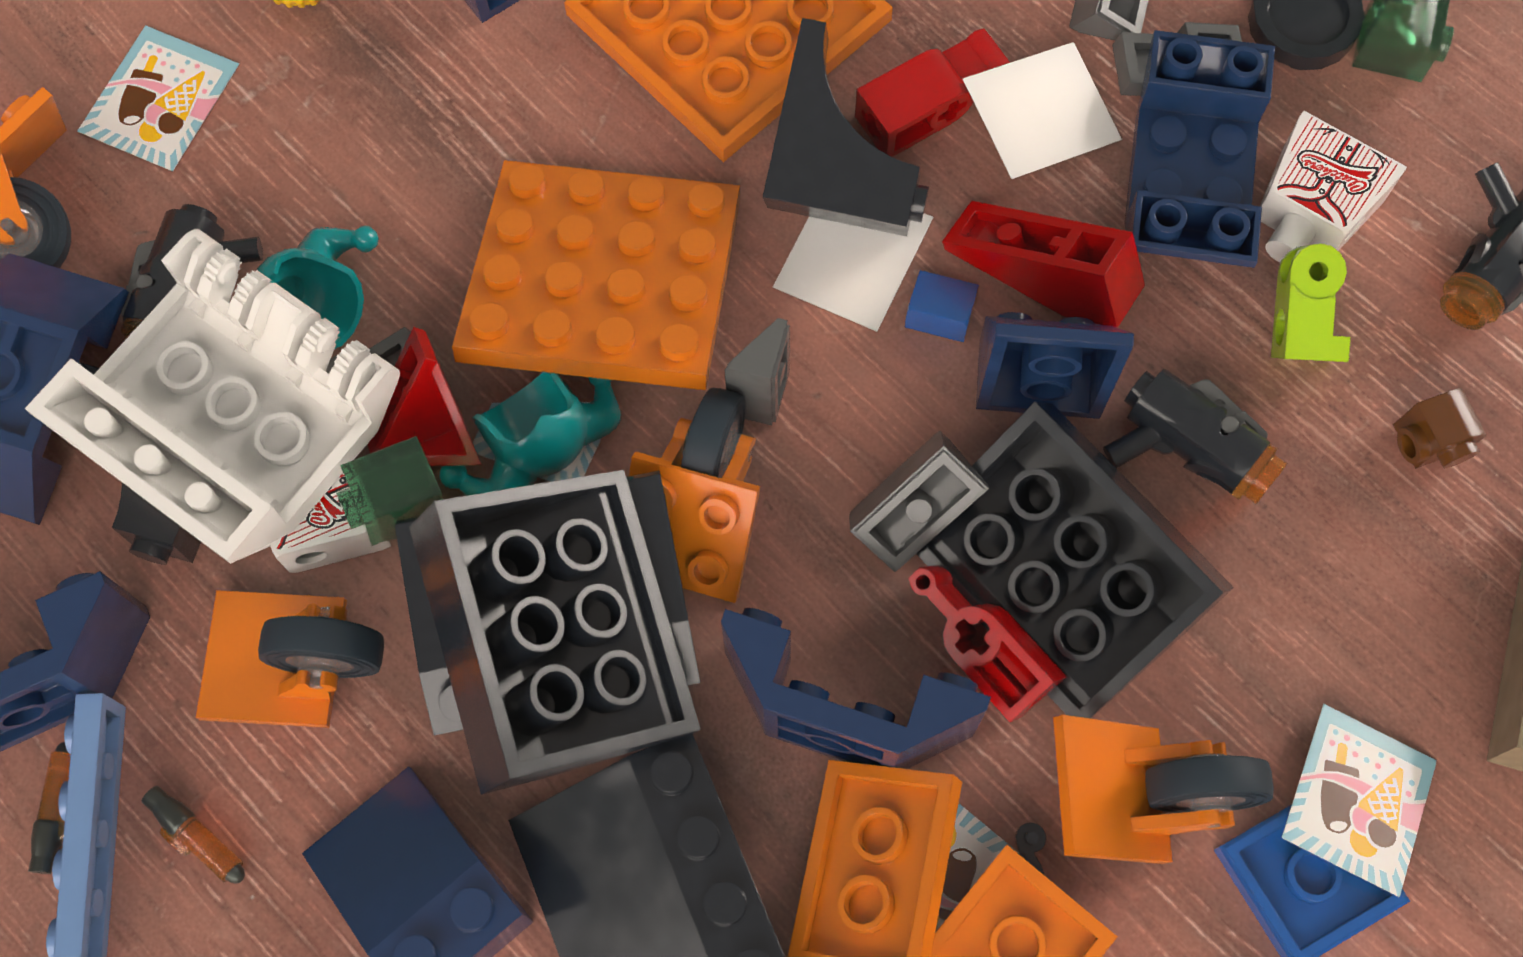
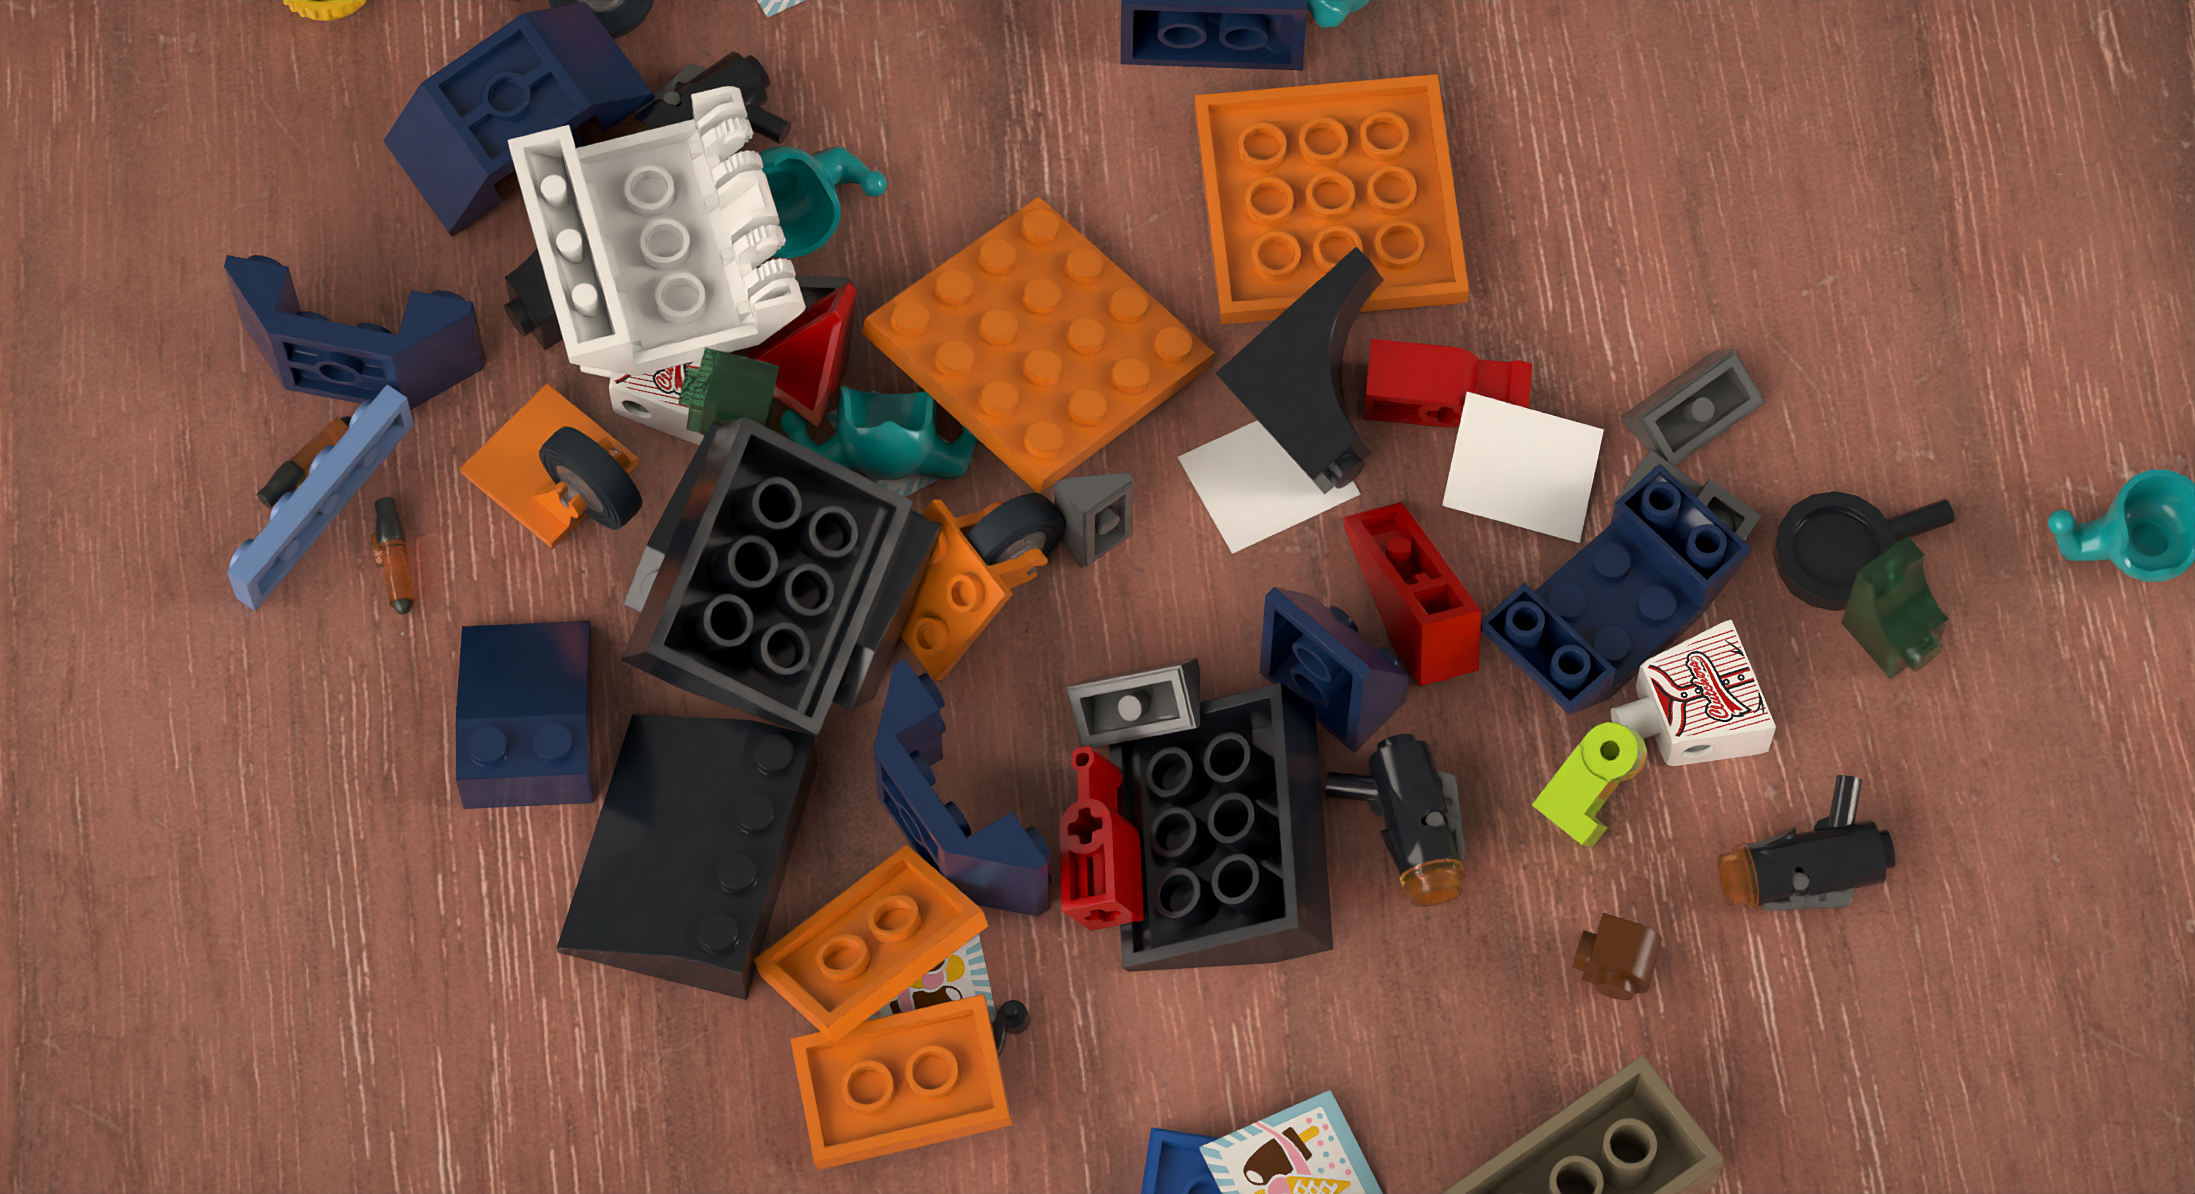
camera: 35 degrees right, 5 degrees down
(941, 306) = (1299, 564): blue slope -> none
(1121, 780) = (1122, 1034): orange plate -> none

